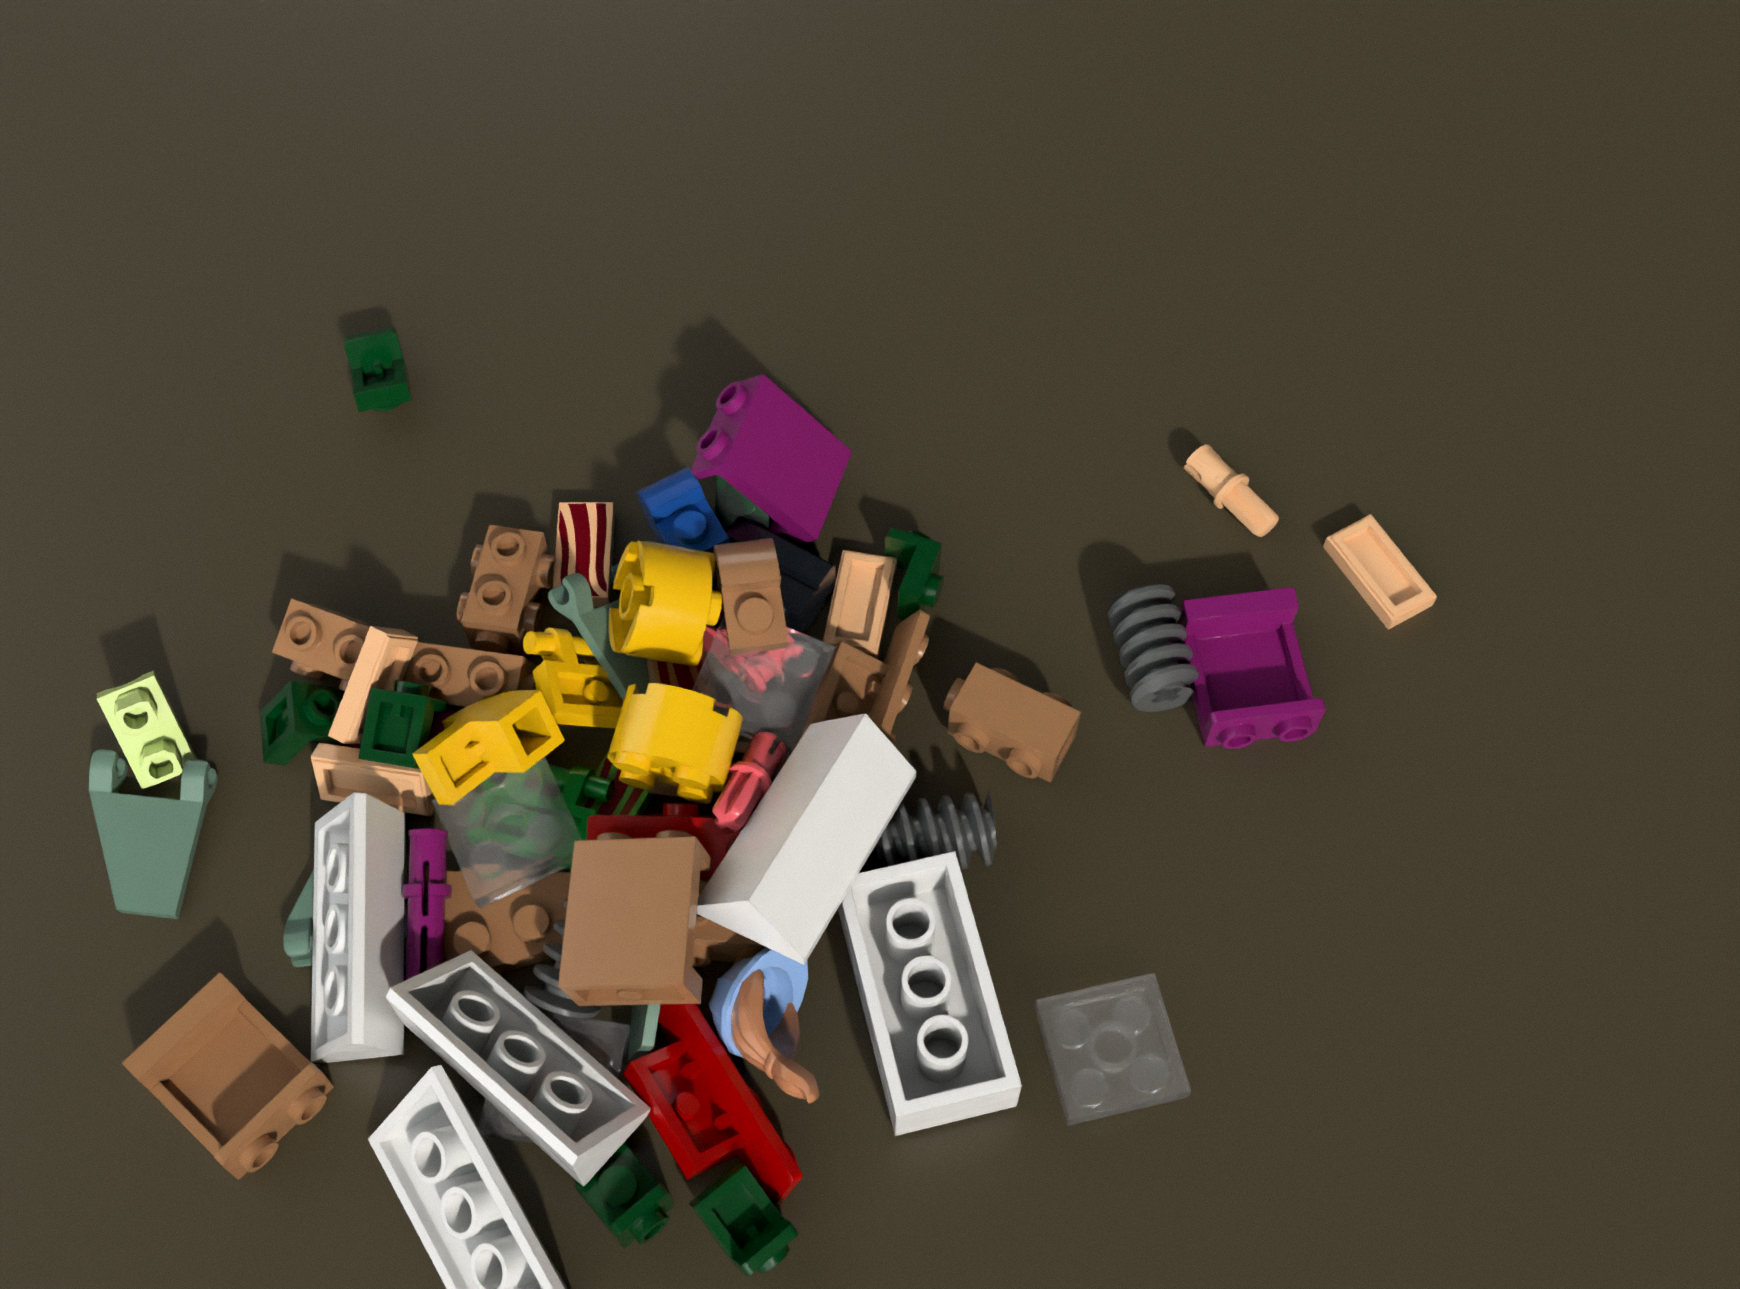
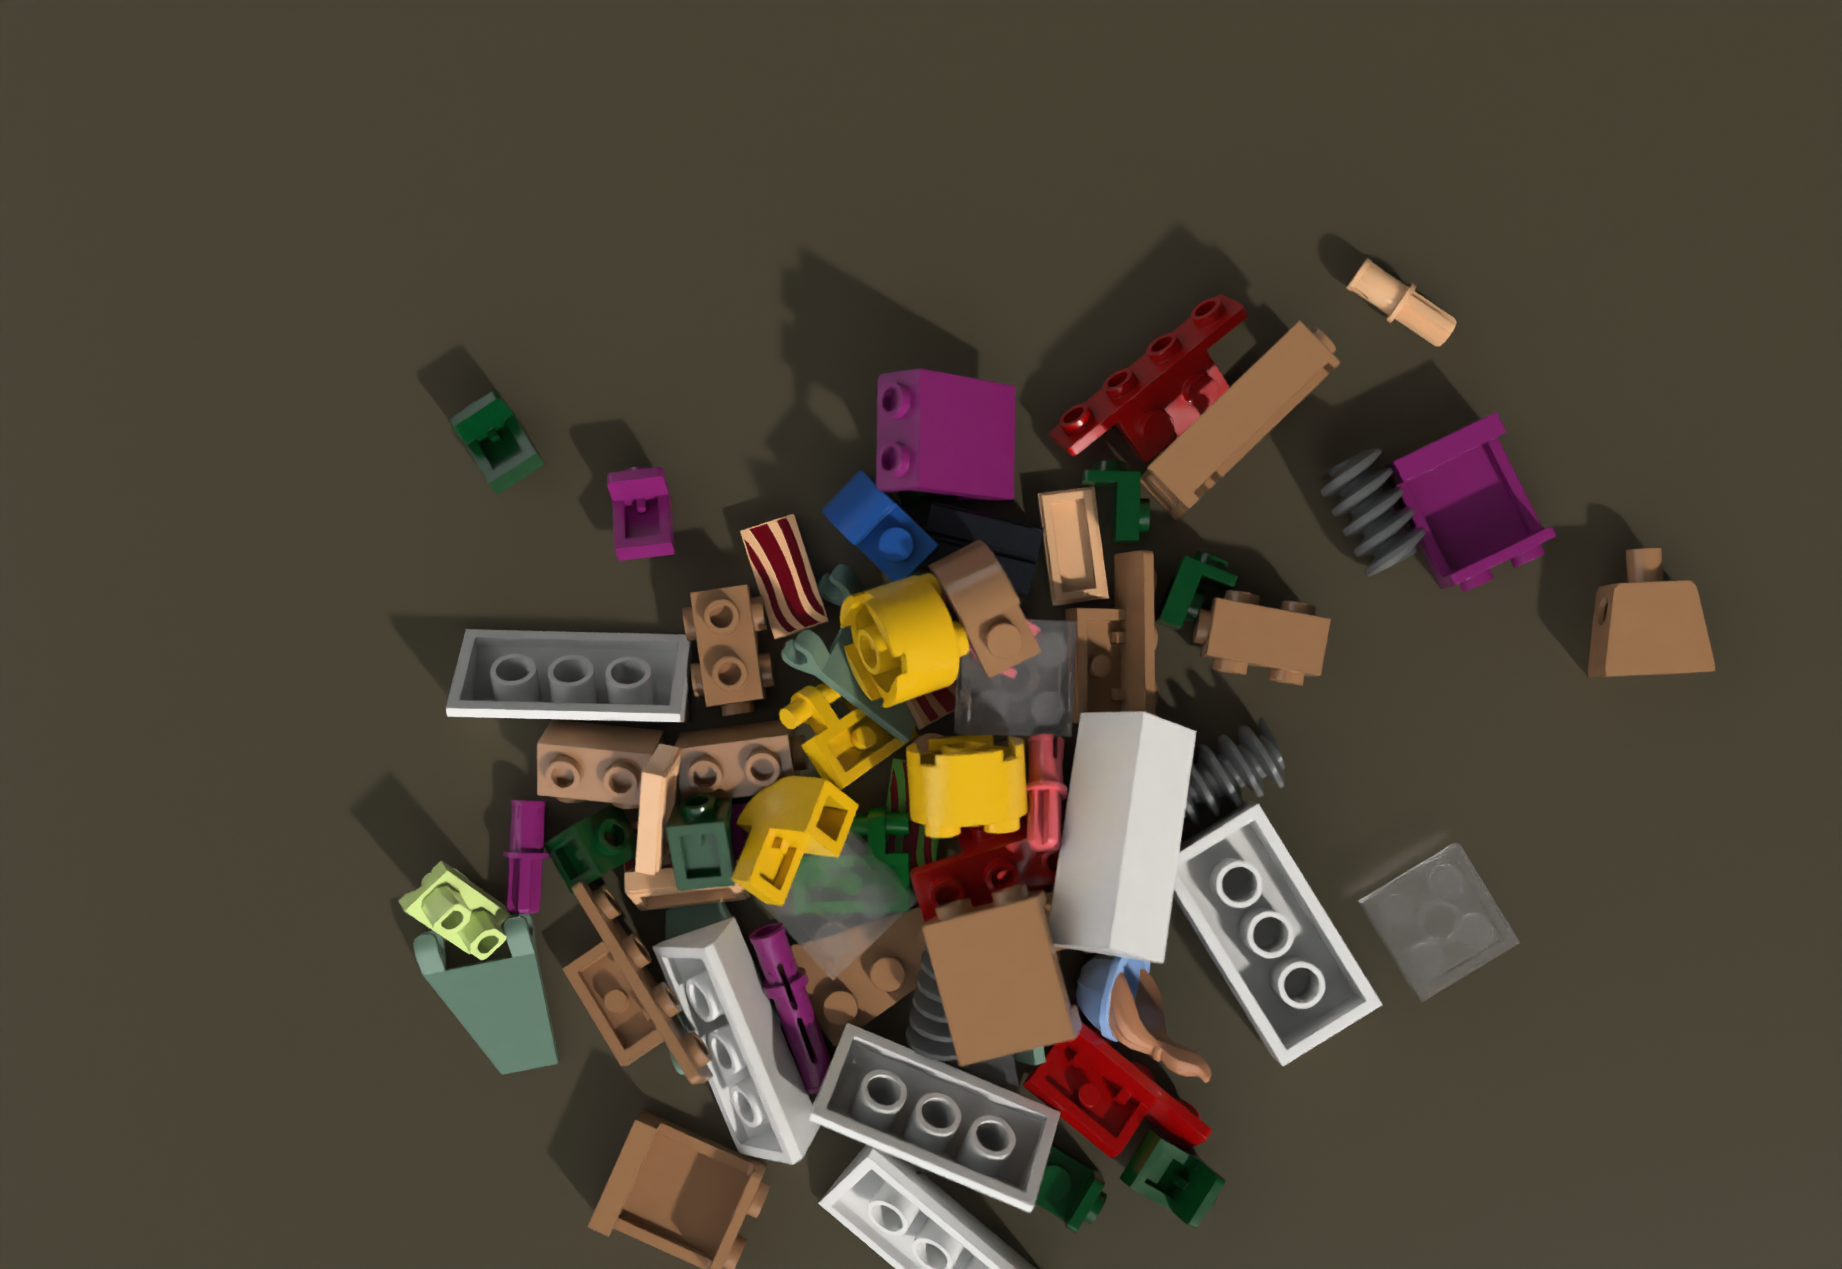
camera: 15 degrees left, 25 degrees up
(238, 714) = (525, 856): none -> magenta axle
(266, 859) = (625, 997): none -> medium nougat bracket
(349, 577) = (572, 676): none -> white slope
(479, 460) = (641, 513): none -> magenta bracket
(952, 660) = (1183, 597): none -> dark green bracket
(988, 503) = (1159, 391): none -> red bracket
(1045, 525) = (1239, 419): none -> medium nougat door
(1379, 571) = (1566, 346): light nougat tile -> none
(1403, 828) = (1648, 623): none -> medium nougat torso

